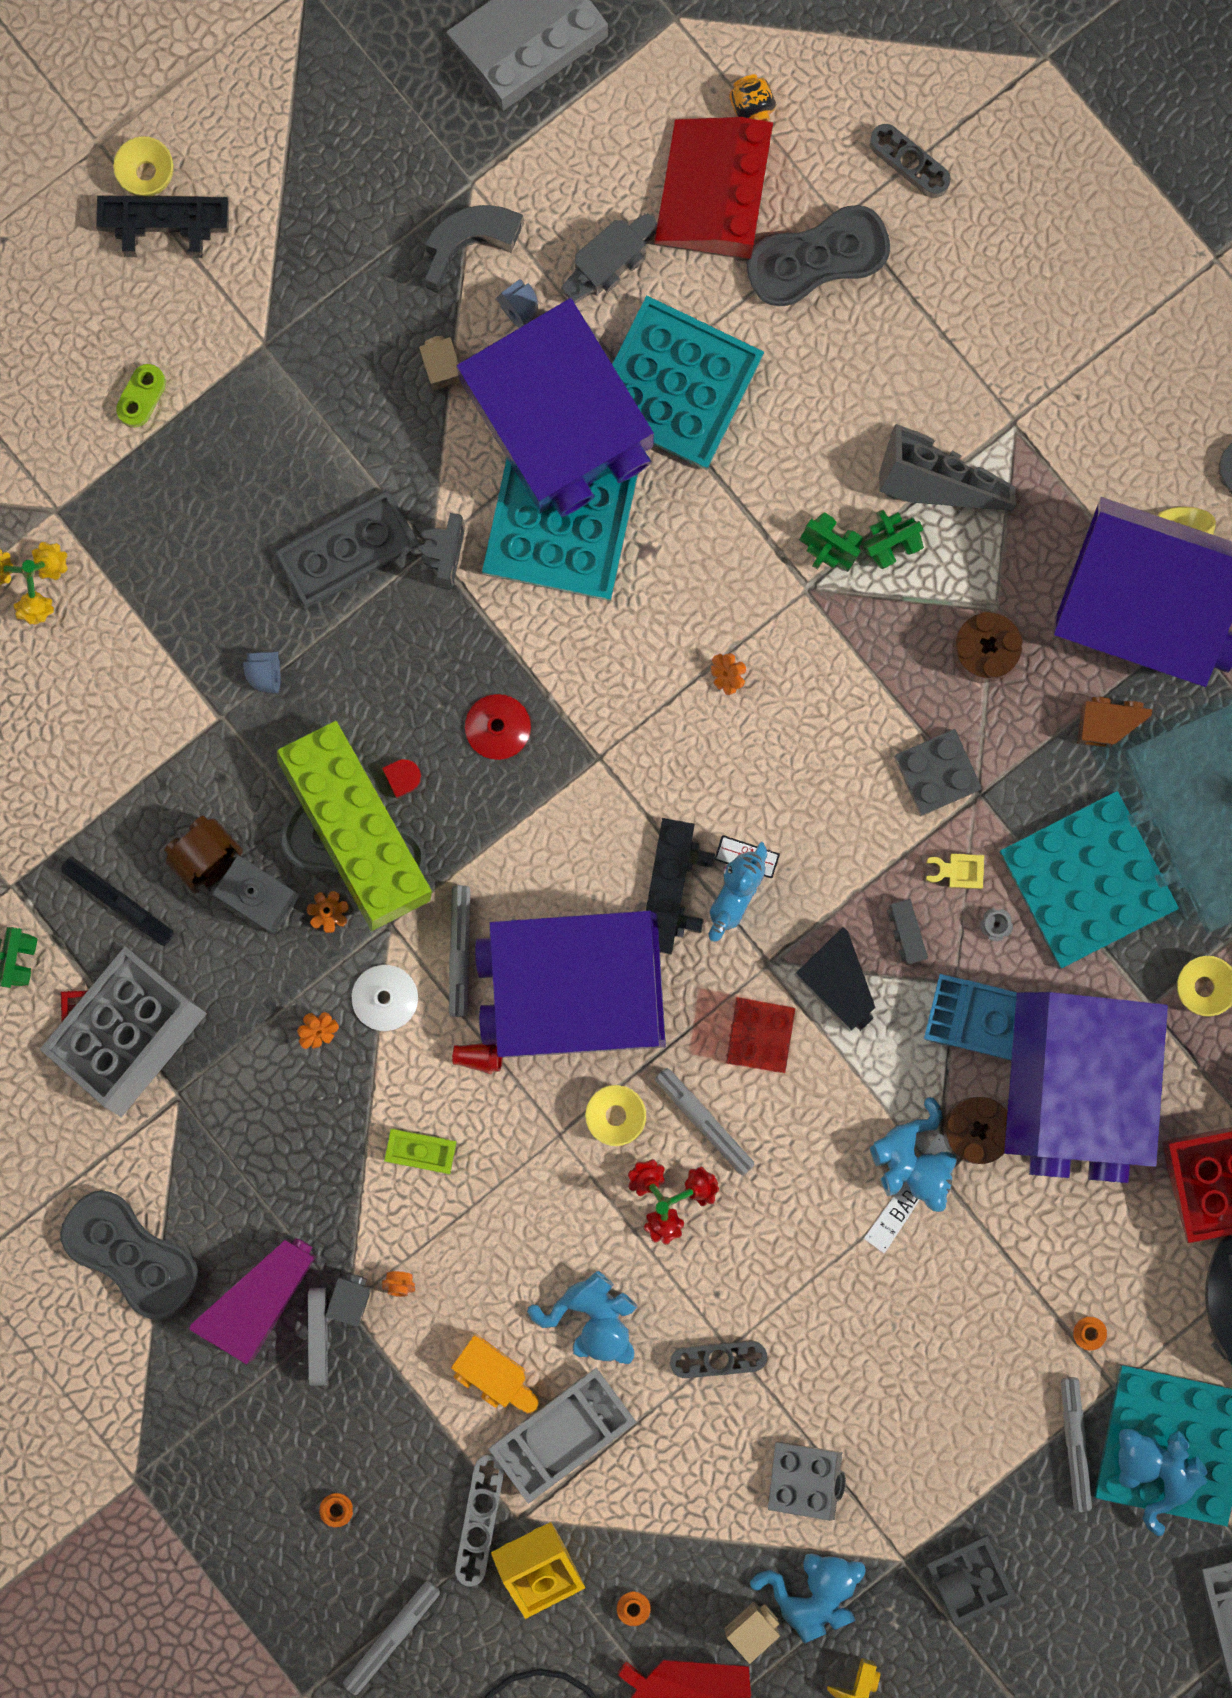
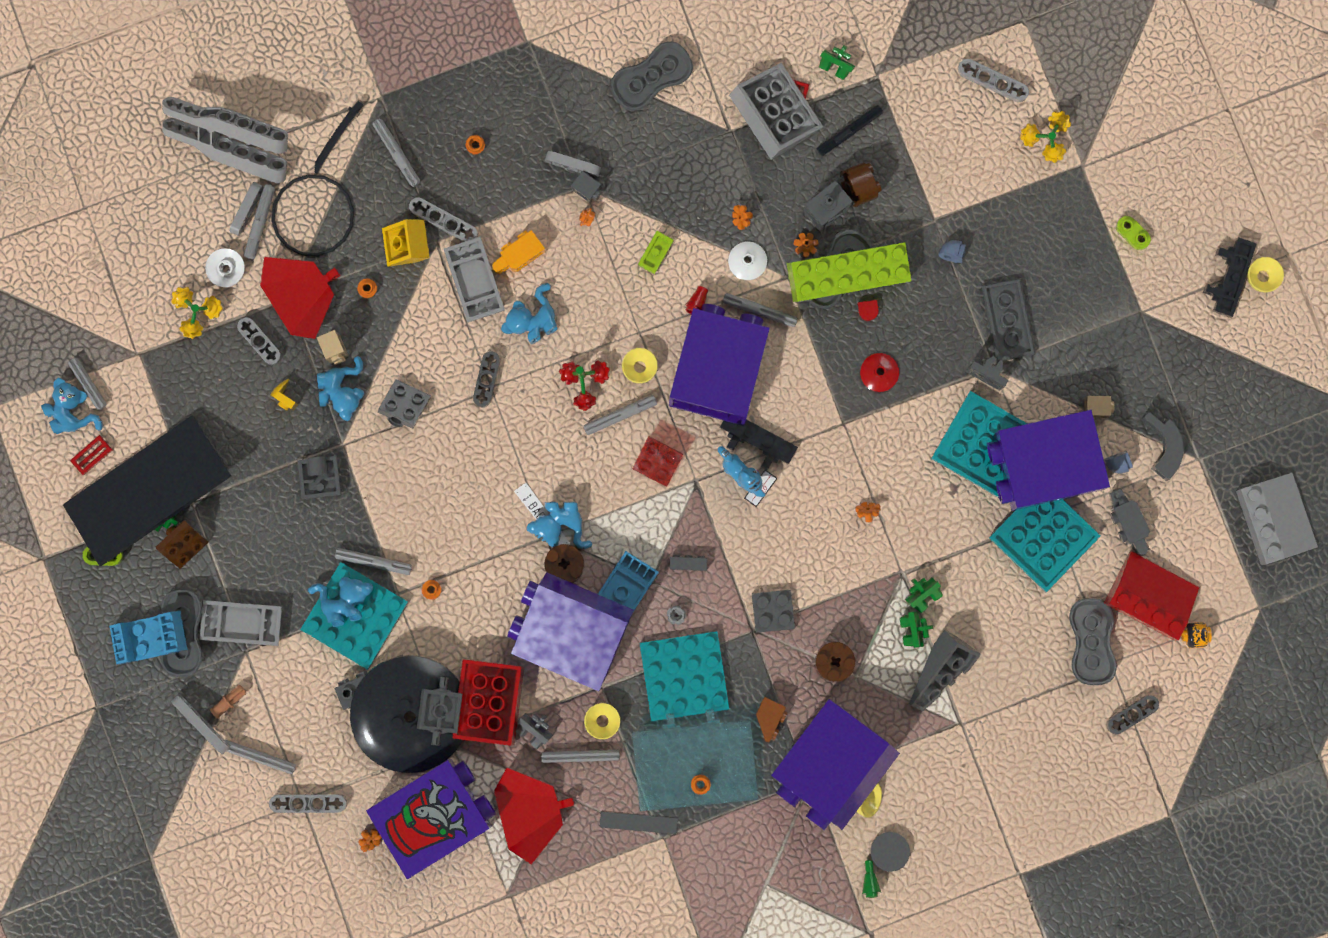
camera: 115 degrees right, 0 degrees up
(253, 1305) = (599, 131): magenta slope -> none
(839, 982) = (673, 514): black slope -> none
(962, 870) = (712, 605): light yellow plate -> none

